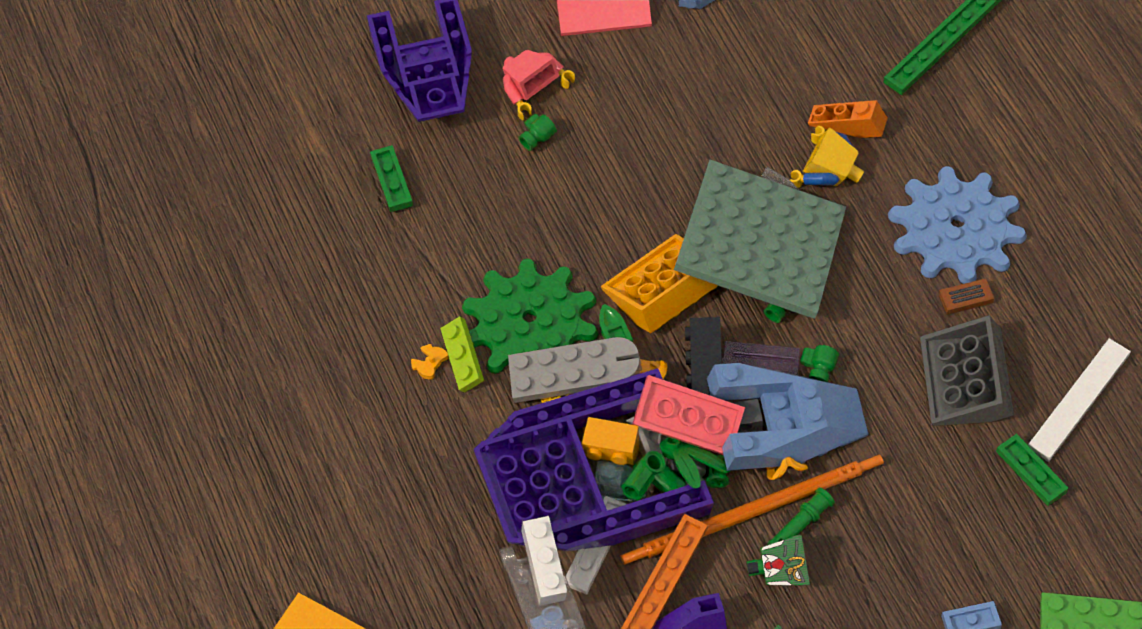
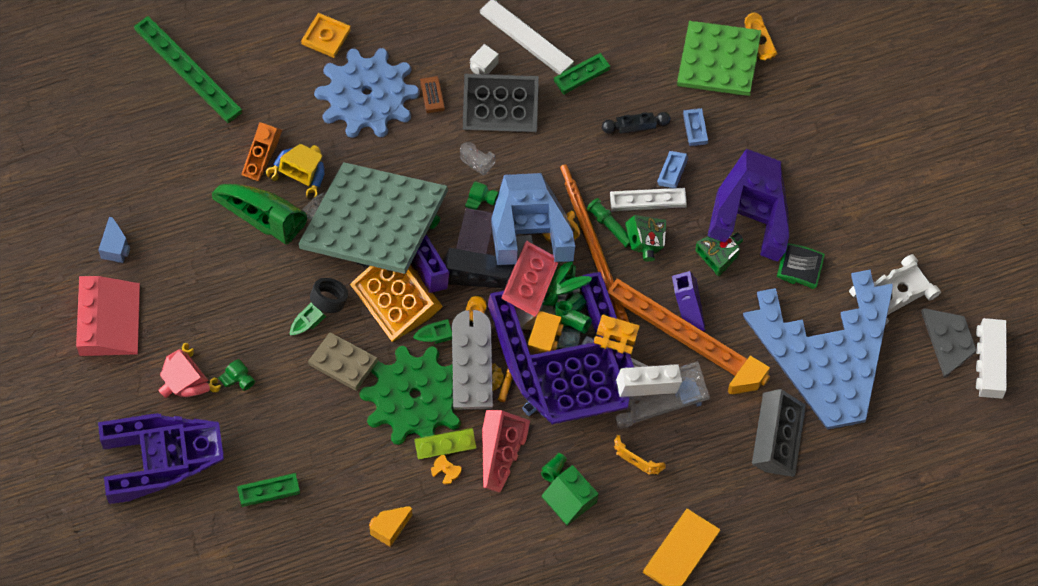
camera: 90 degrees left, 5 degrees up
(348, 304) = (390, 524): none -> light orange slope
(399, 501) = (570, 495): none -> green slope
(433, 477) = (553, 467): none -> green cone
(457, 415) = (502, 438): none -> coral wedge
(463, 555) = (648, 467): none -> light orange piece
(565, 235) = (343, 361): none -> dark tan plate
(620, 192) = (308, 318): none -> plate
(621, 525) = (617, 330): none -> light orange plate
(665, 200) = (324, 303): none -> black tyre
(705, 302) = (430, 267): none -> dark purple brick
(756, 132) = (284, 217): none -> green panel
(847, 569) = (648, 199): none -> white tile
(871, 357) = (476, 159): none -> clear leg
(896, 593) = (672, 169): none -> medium blue plate
(965, 543) = (636, 122): none -> black plate
(1026, 348) = (484, 60): none -> white brick
(1031, 168) = (326, 35): none -> light orange plate

